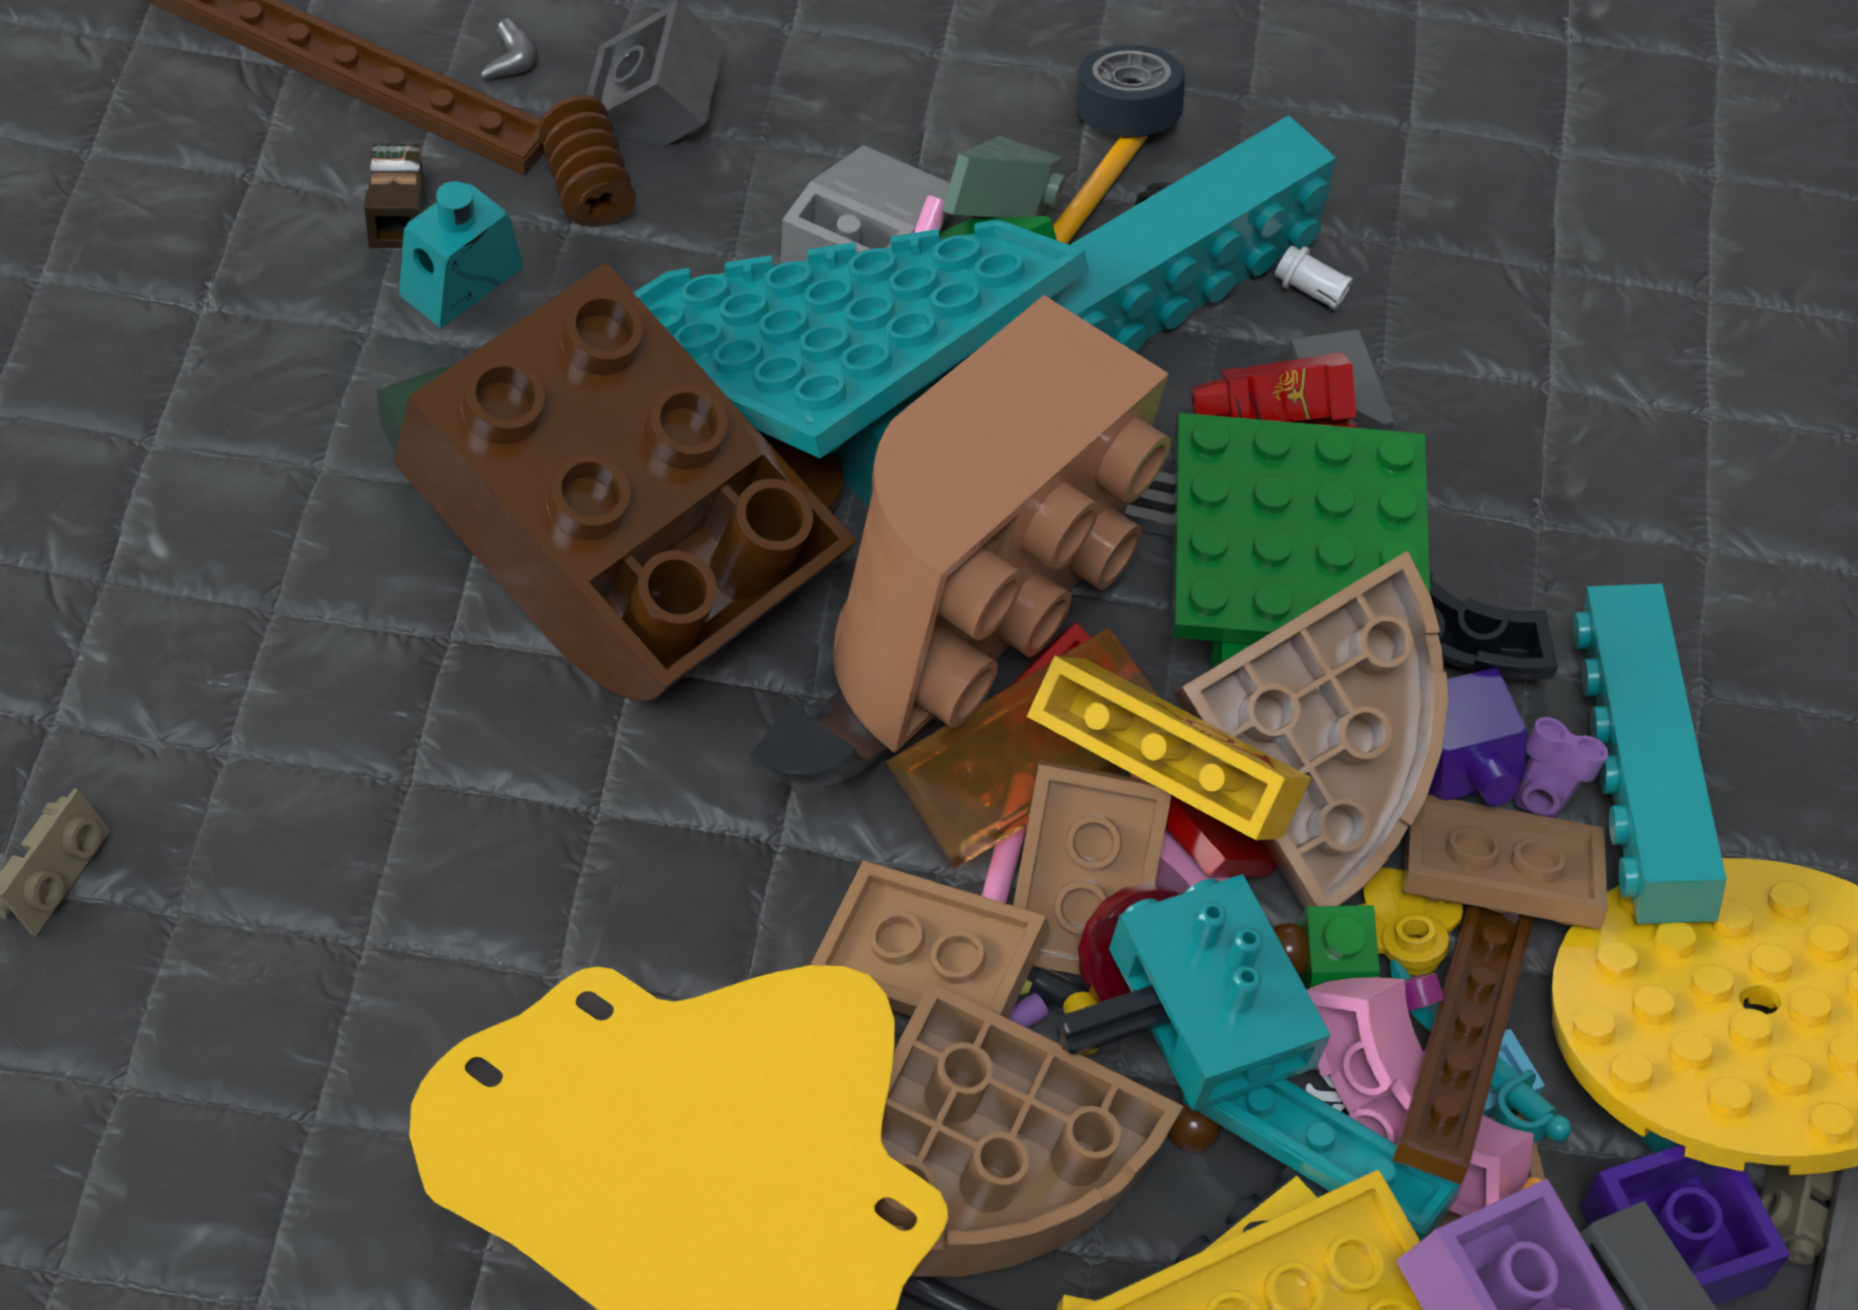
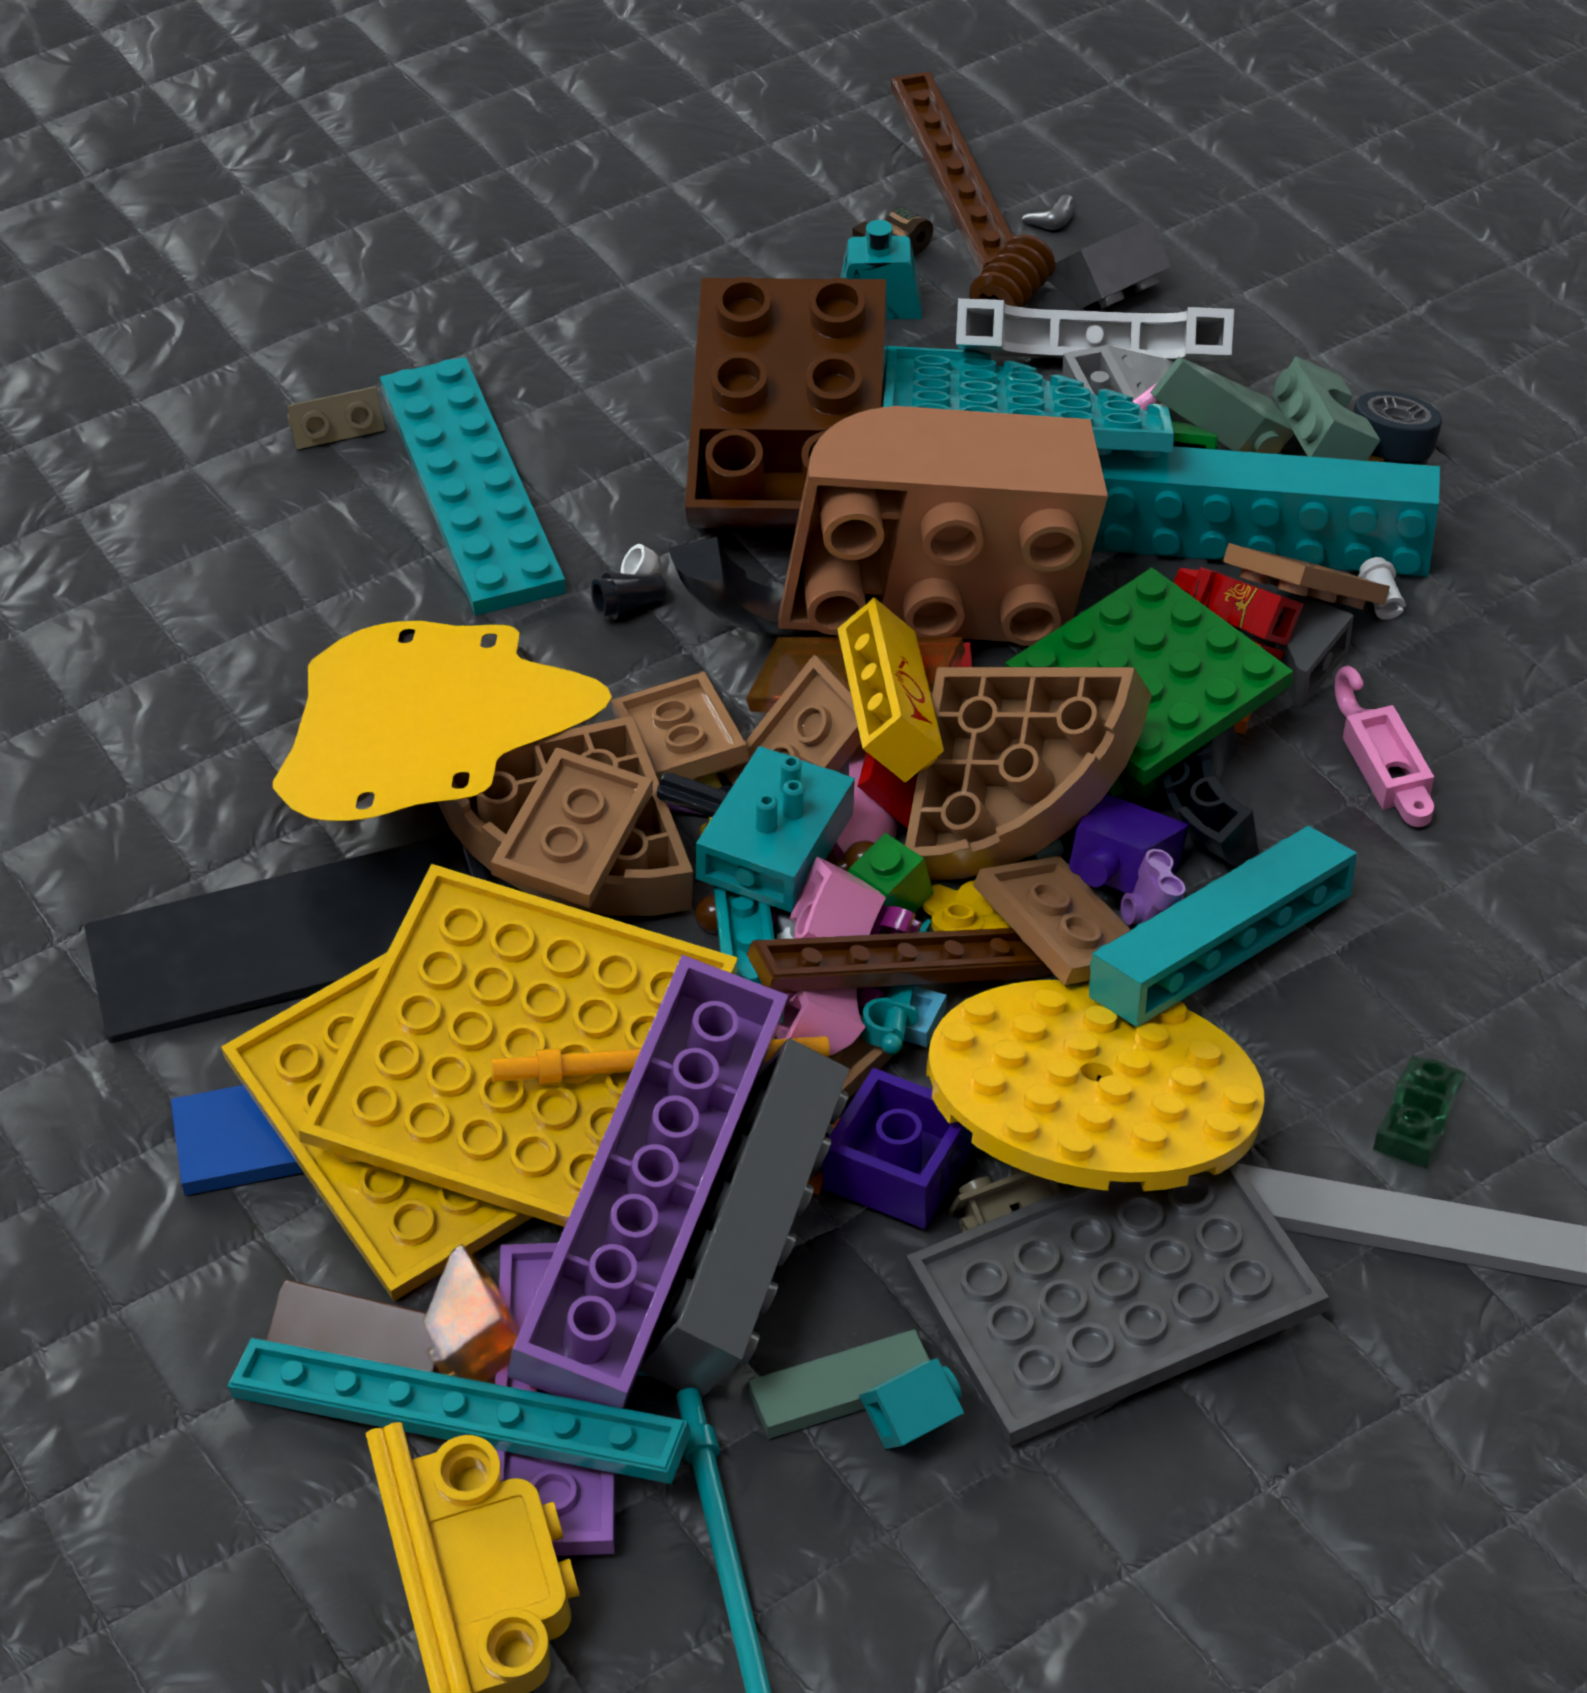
camera: 55 degrees right, 10 degrees down
(306, 825) = (472, 486): none -> teal plate
(619, 777) = (641, 561): none -> white hinge
(655, 832) = (624, 593): none -> black cone
(681, 219) = (1043, 333): none -> white arch
(1050, 1166) = (572, 827): none -> medium nougat plate
(1106, 137) = (1317, 413): none -> sand green arch
(1287, 317) = (1305, 577): none -> medium nougat plate
(1509, 452) = (1380, 742): none -> bright pink piece

